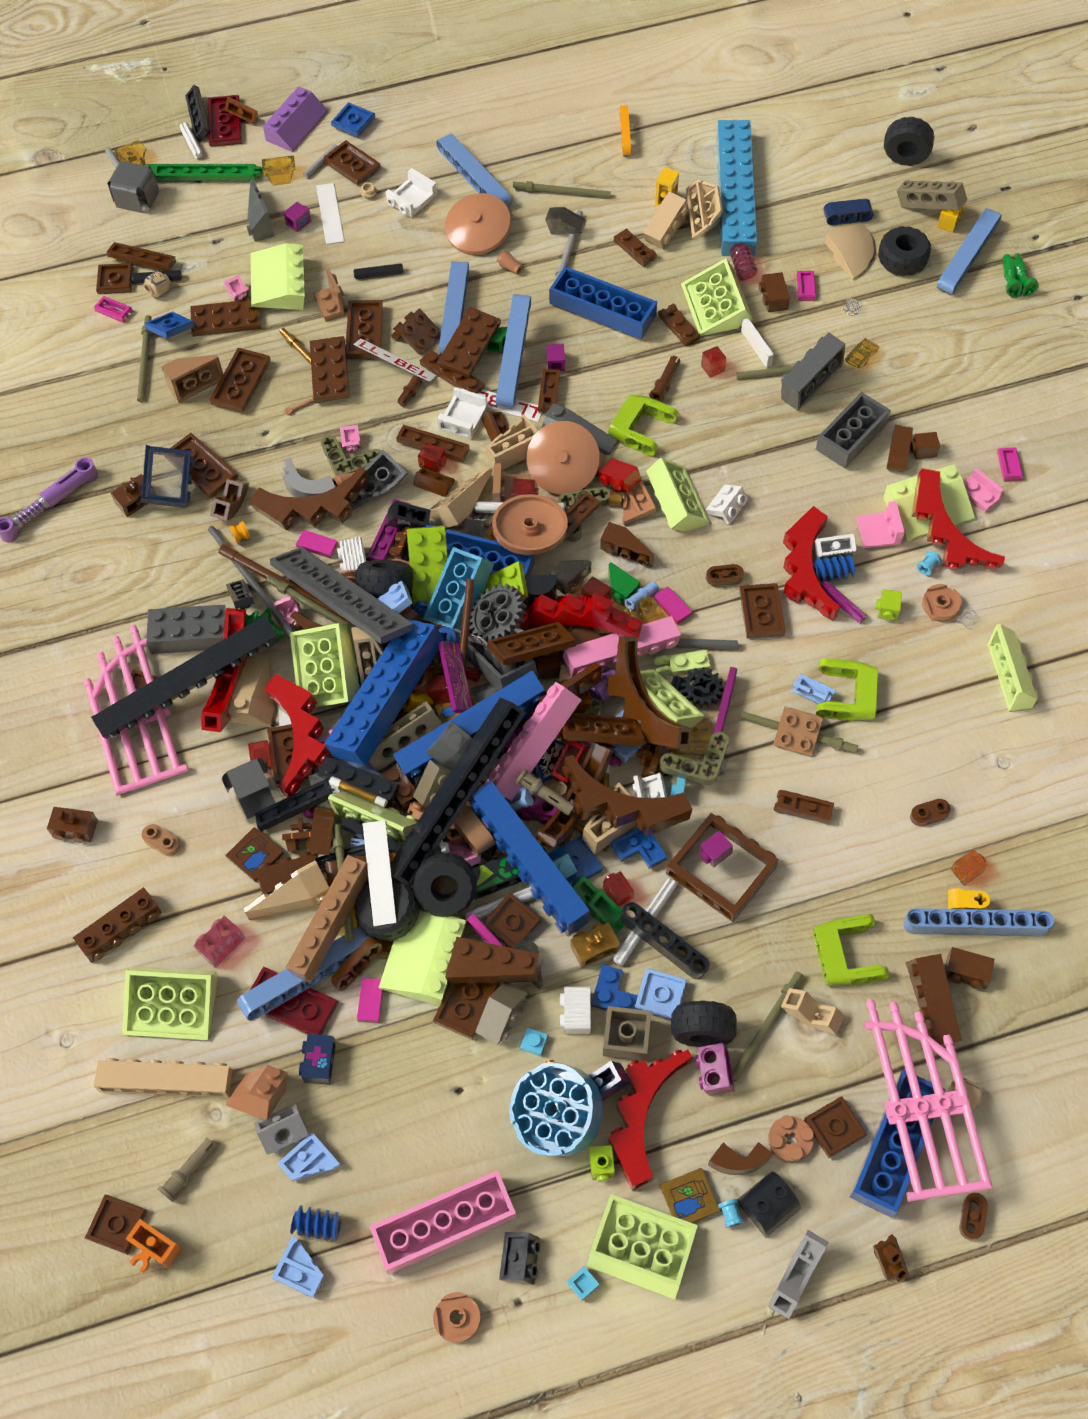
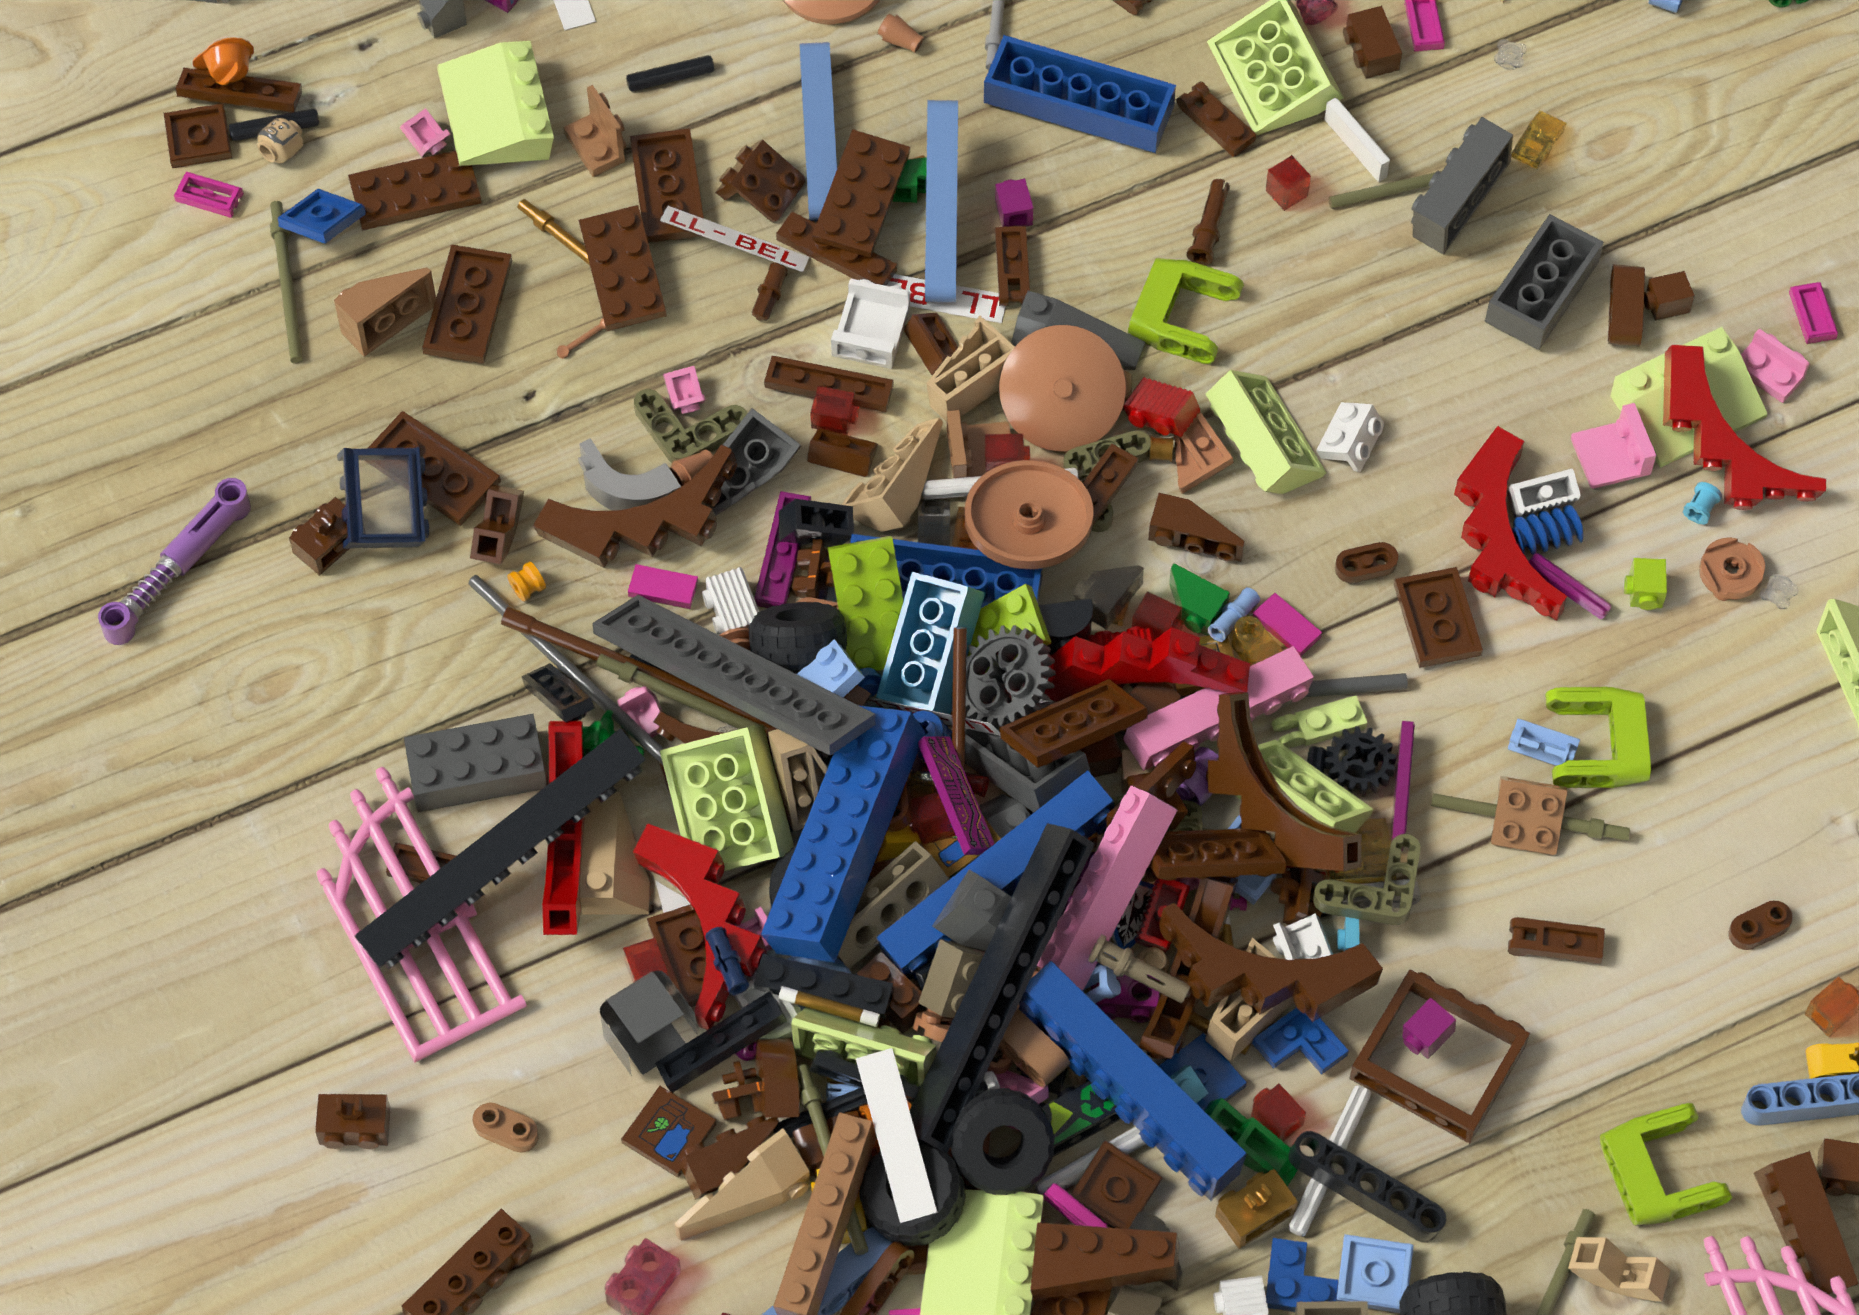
camera: 10 degrees left, 0 degrees up
(135, 237) = (226, 59): none -> orange piece
(302, 757) = (727, 960): none -> dark blue pin

